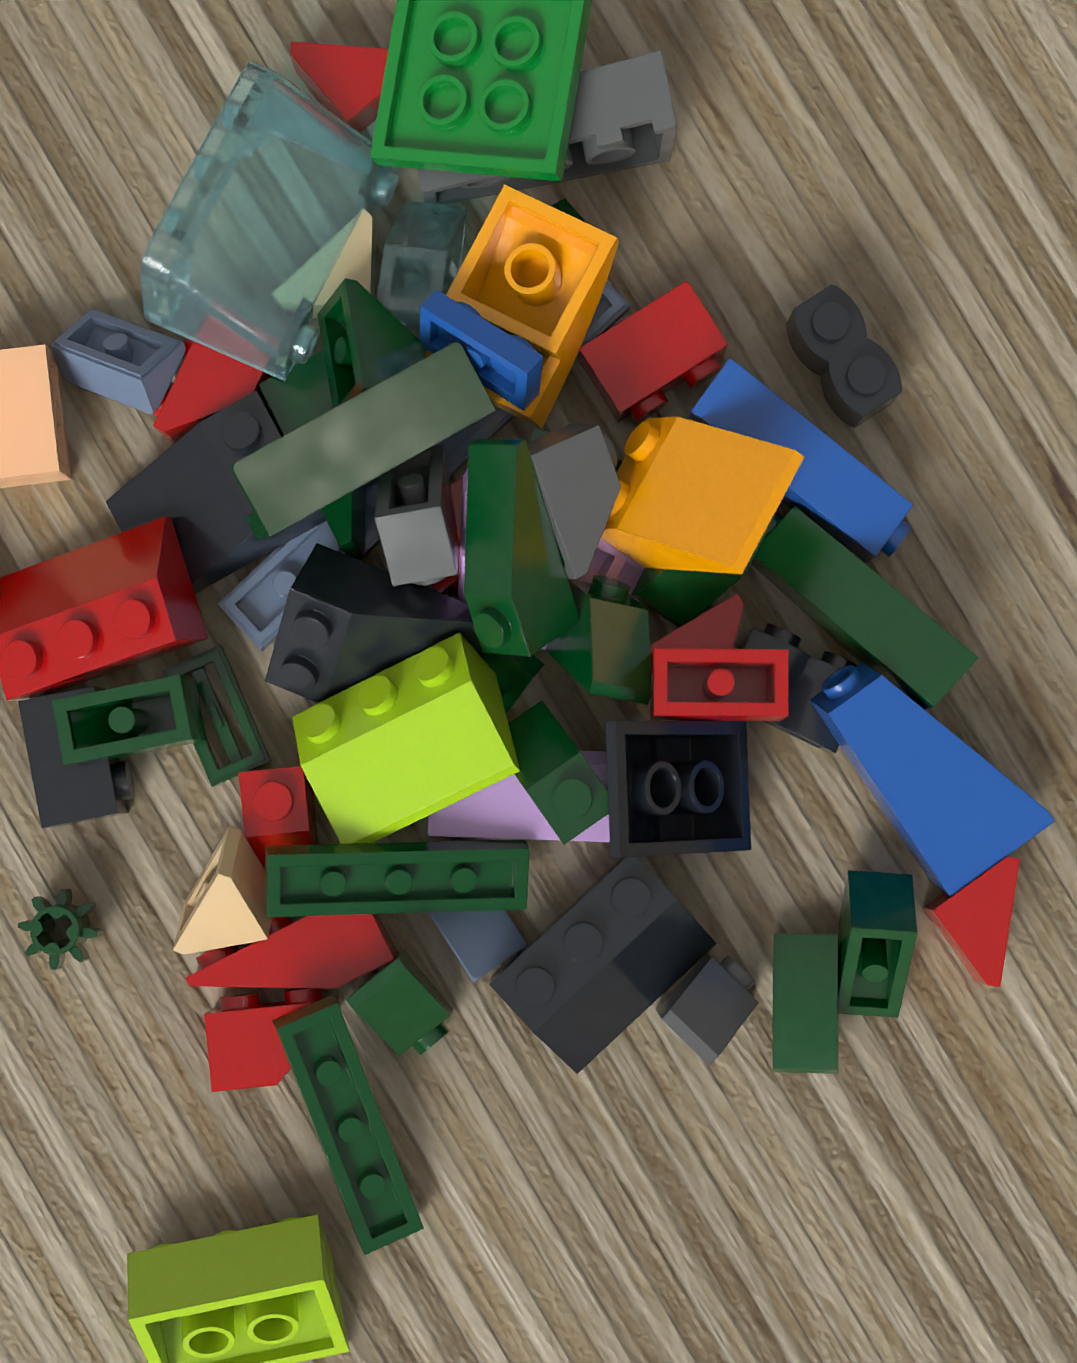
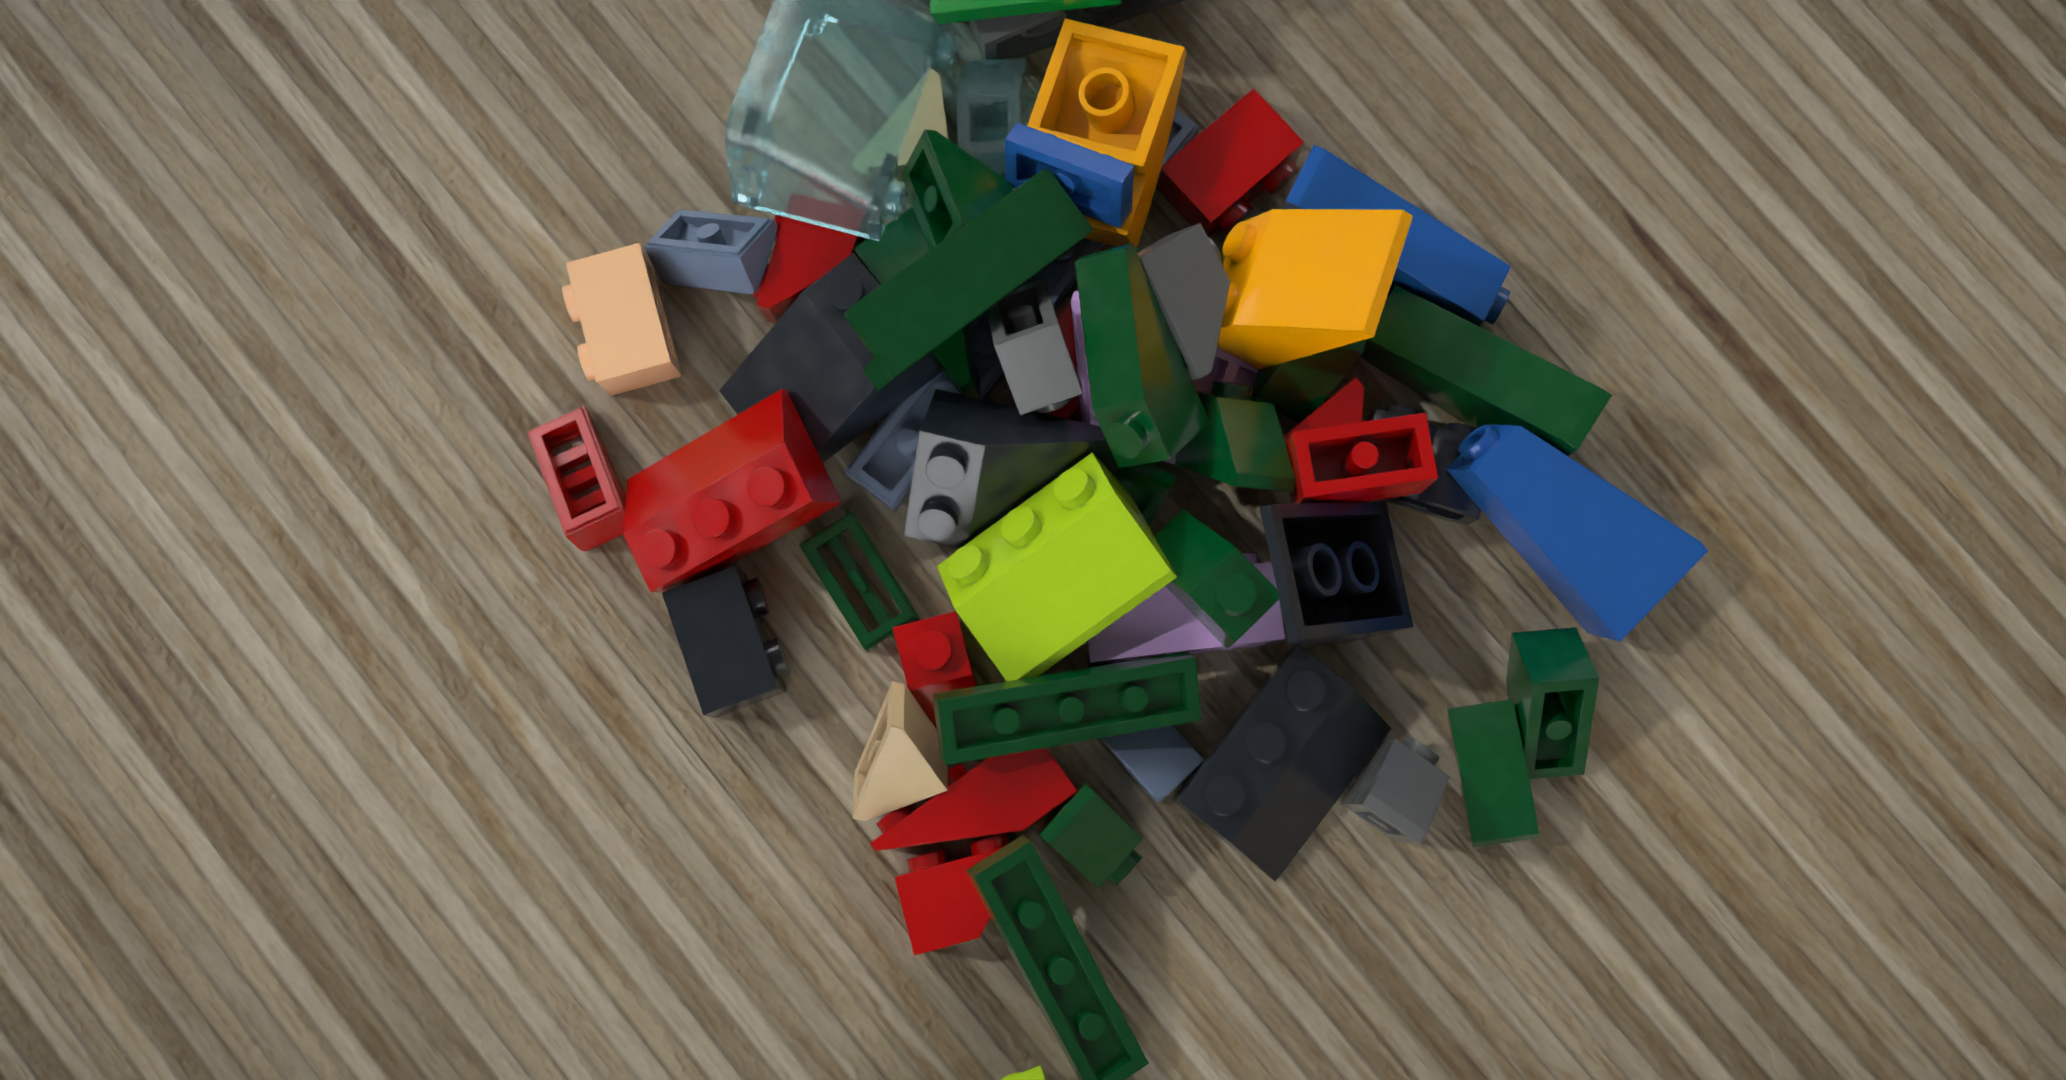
camera: 10 degrees left, 5 degrees down
(77, 933) = (717, 816): dark green gear -> none
(129, 720) = (775, 592): dark green slope -> none
(833, 343) = (1425, 149): black brick -> none
(979, 920) = (1650, 664): red slope -> none

